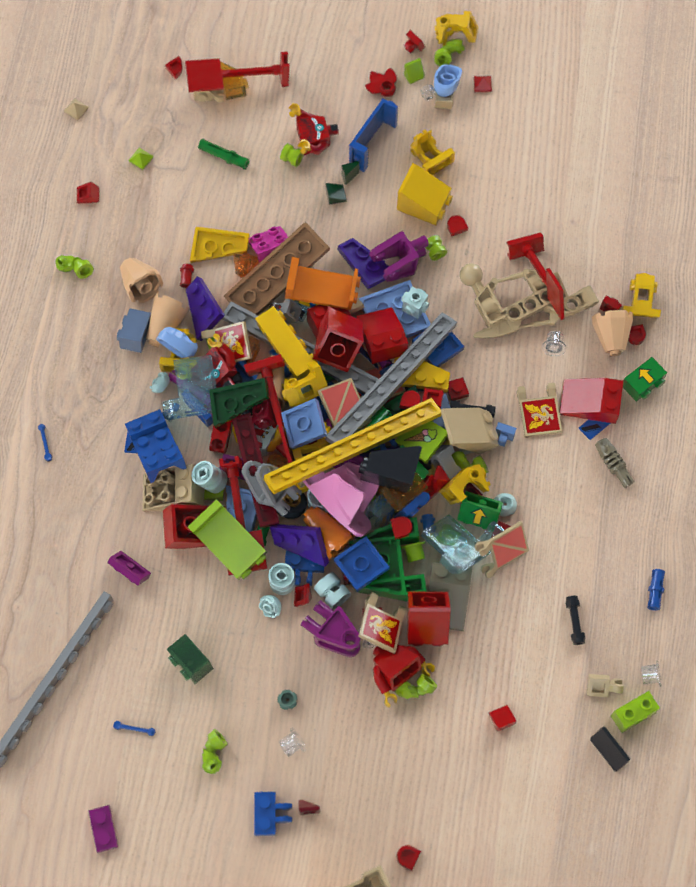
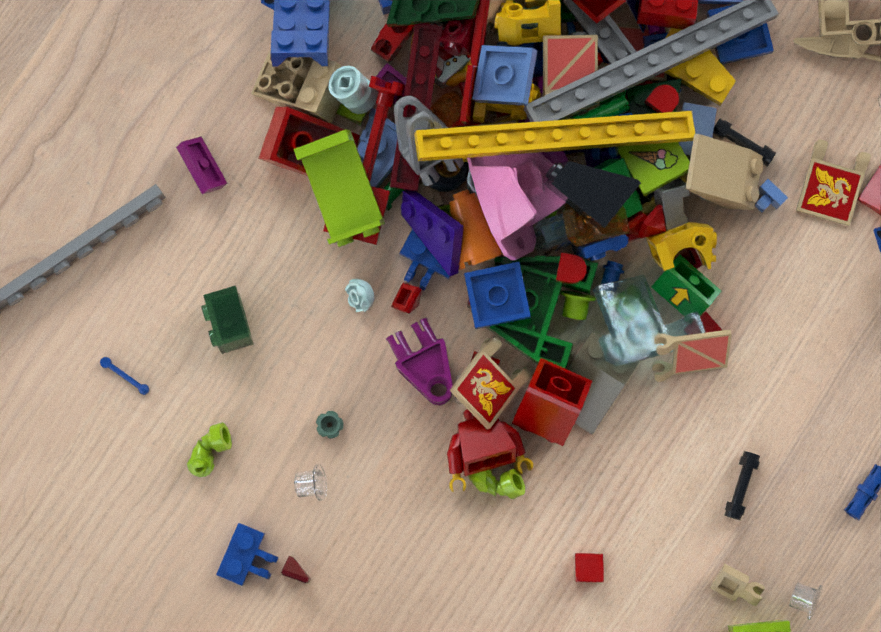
camera: 25 degrees right, 15 degrees up
(103, 829) = (36, 484): magenta plate -> none
(281, 579) = (388, 266): light aqua wheel -> none
(331, 589) = (443, 301): light aqua wheel -> none
(436, 395) = (699, 107): red plate -> none
(457, 389) = (737, 106): red plate -> none
(461, 461) = (693, 209): lime arm -> none
(511, 503) = (733, 295): light aqua plate -> none

